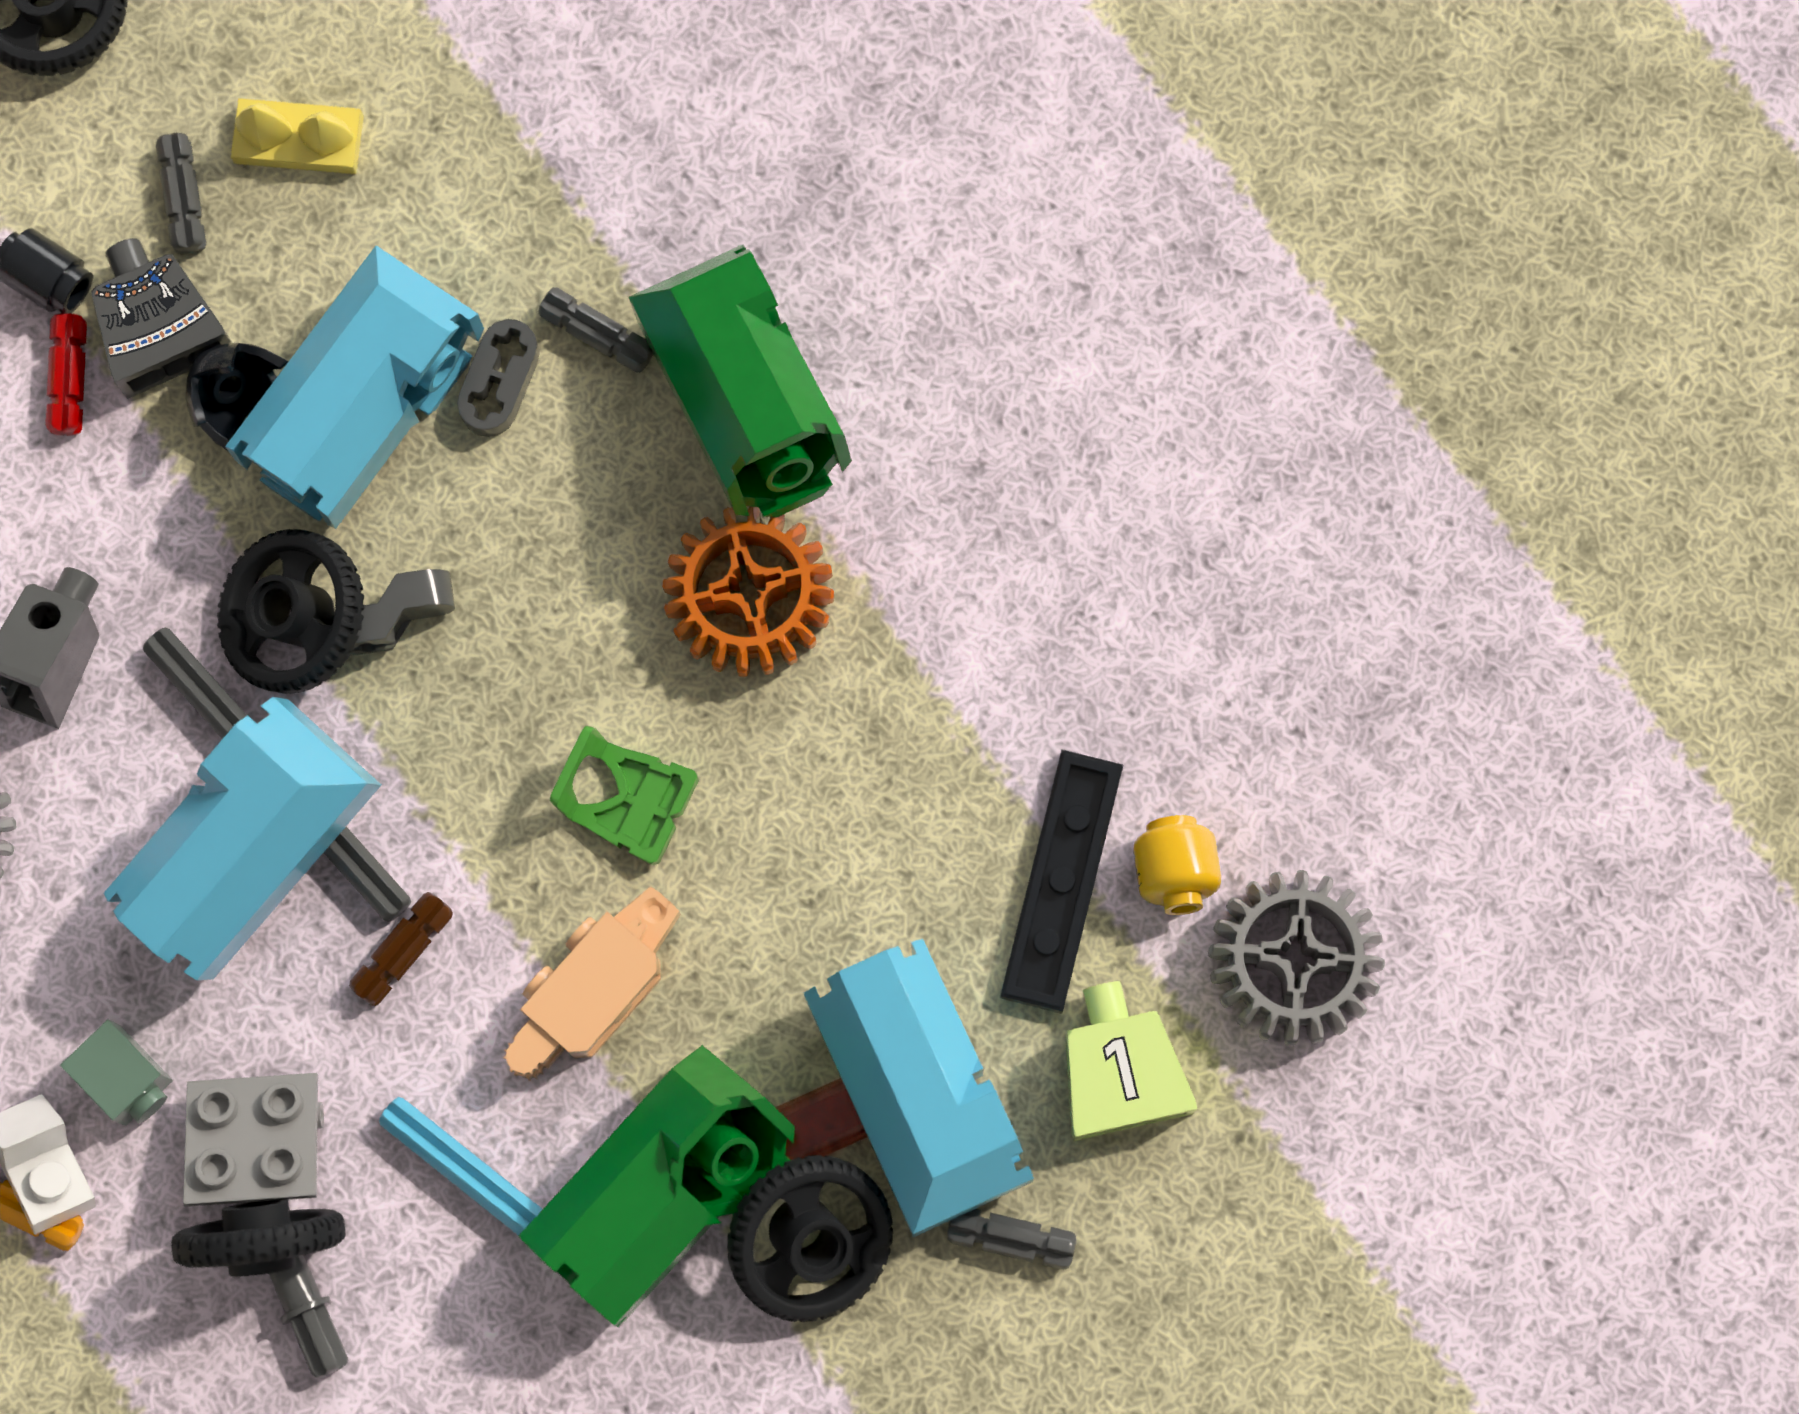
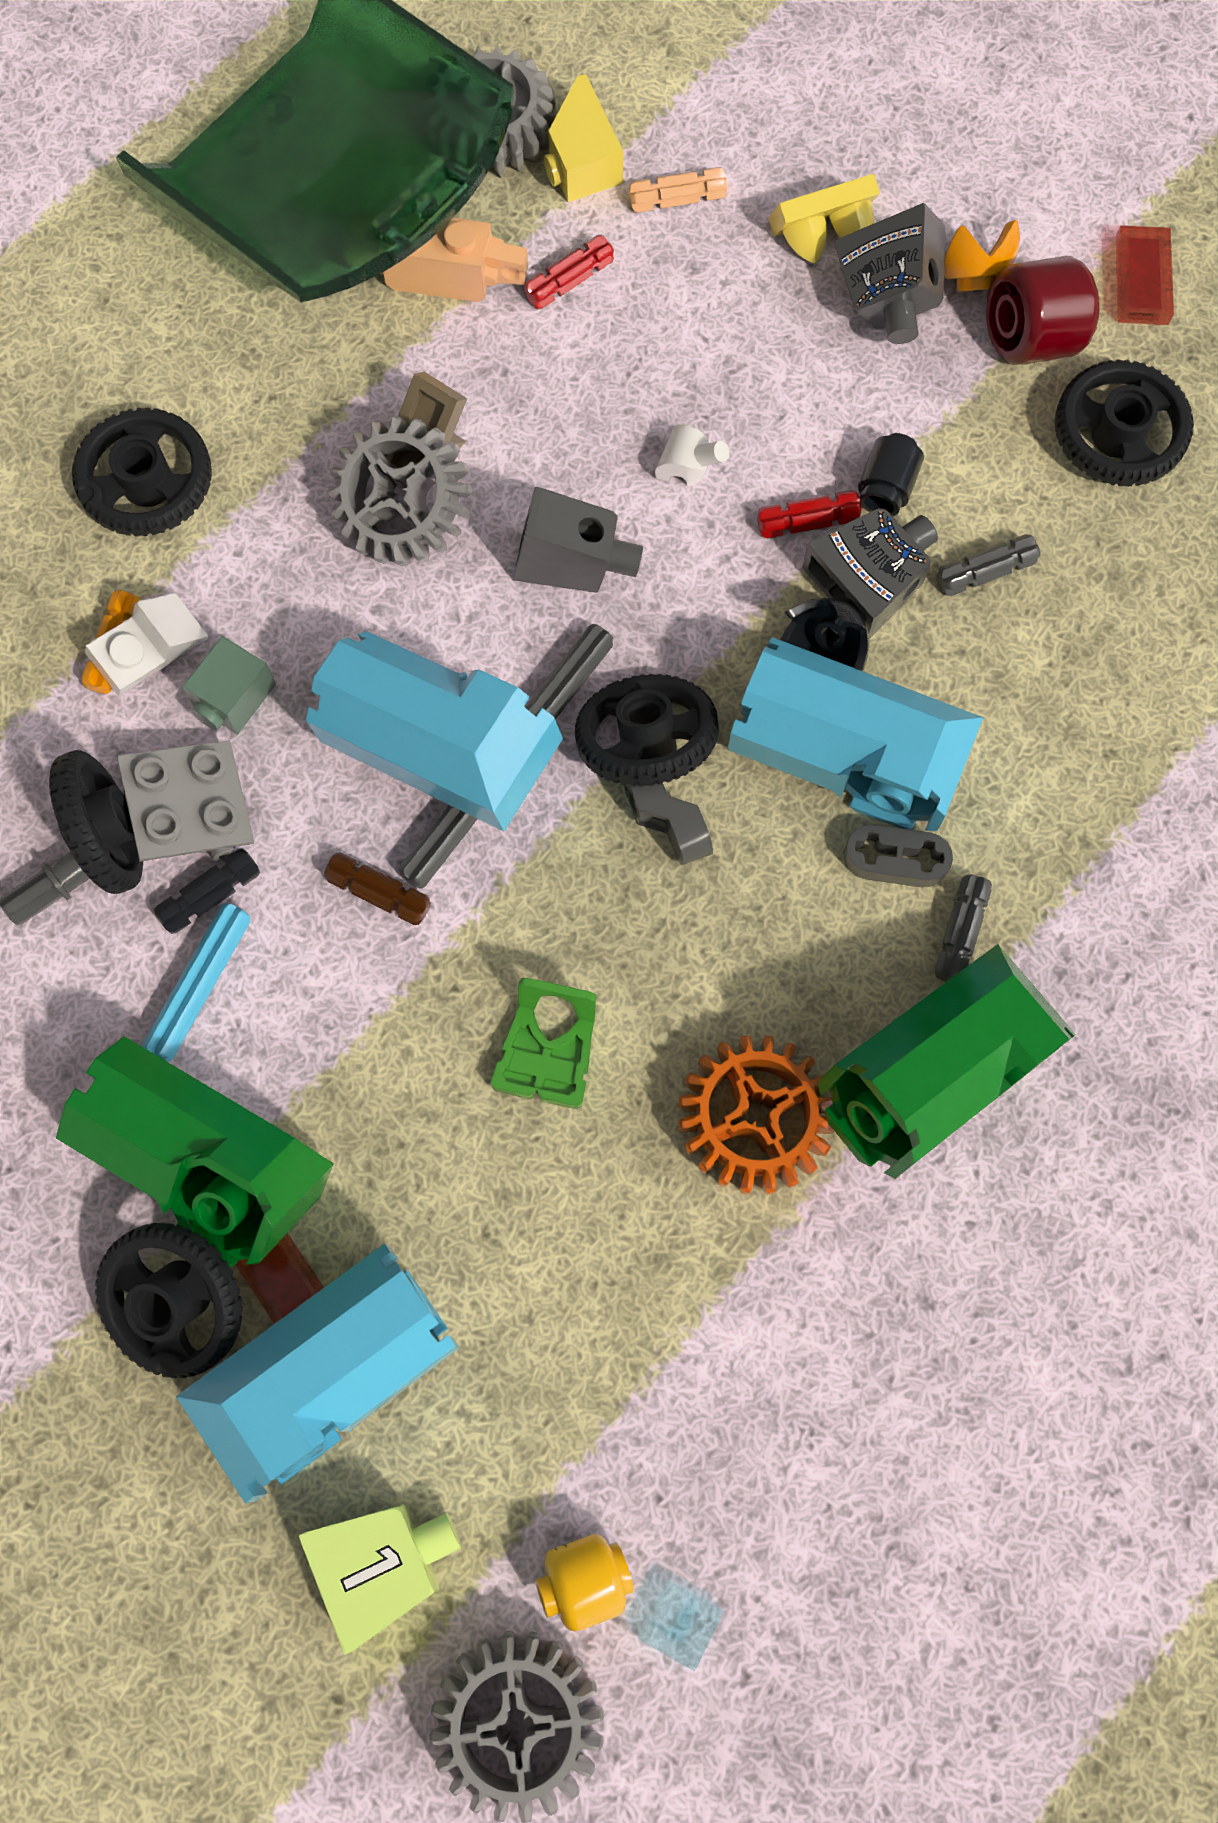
camera: 75 degrees right, 5 degrees down
(297, 136) = (1065, 644): light yellow tile -> none
(358, 1139) = (207, 891): none -> black axle
(594, 986) = (370, 1058): light nougat hinge -> none
(1013, 1238) = (203, 1501): dark grey axle -> none
(1061, 881) = (550, 1469): black tile -> none
(1235, 782) = (680, 1624): none -> clear light blue tile

